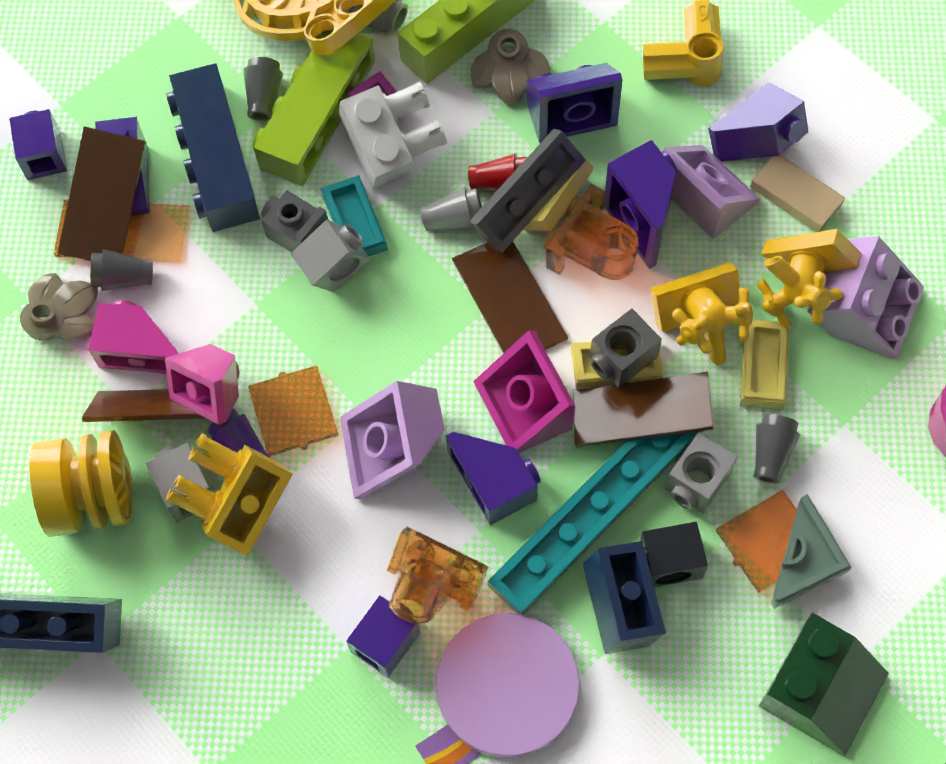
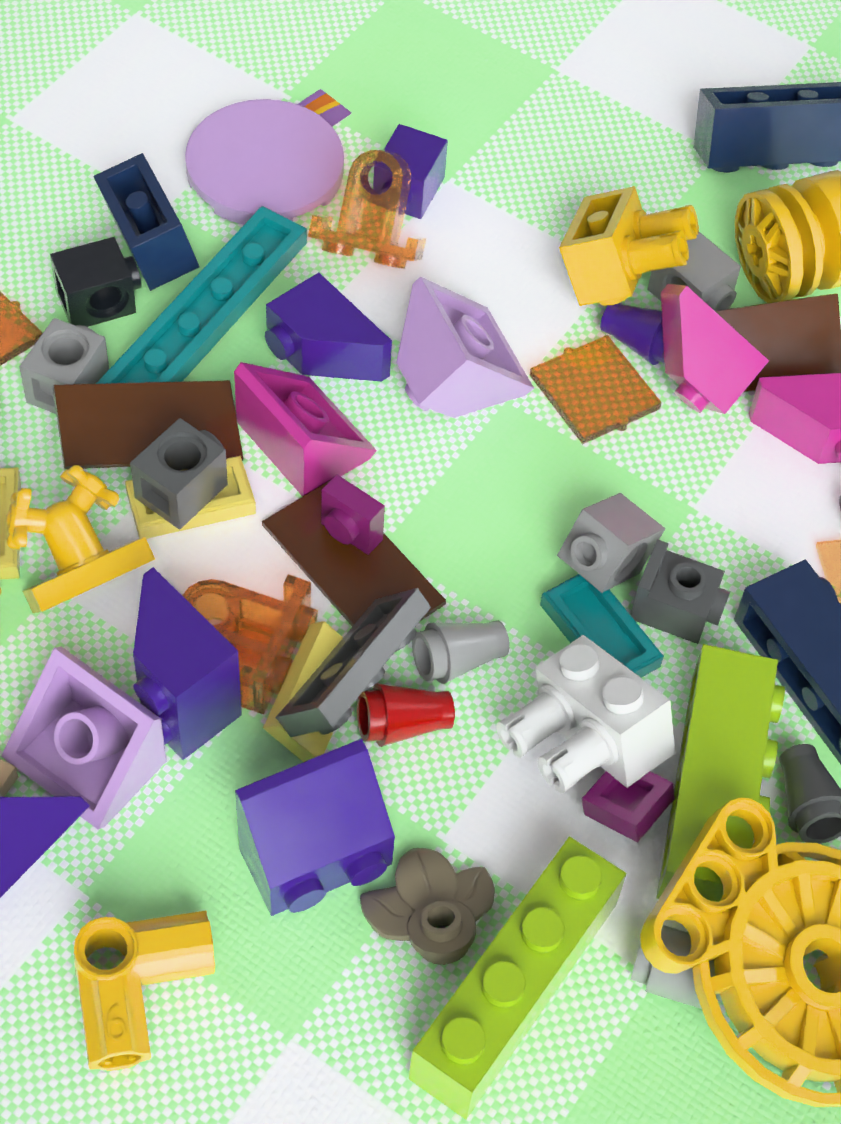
camera: 160 degrees right, 10 degrees down
(506, 308) = (352, 515): none -> magenta plate

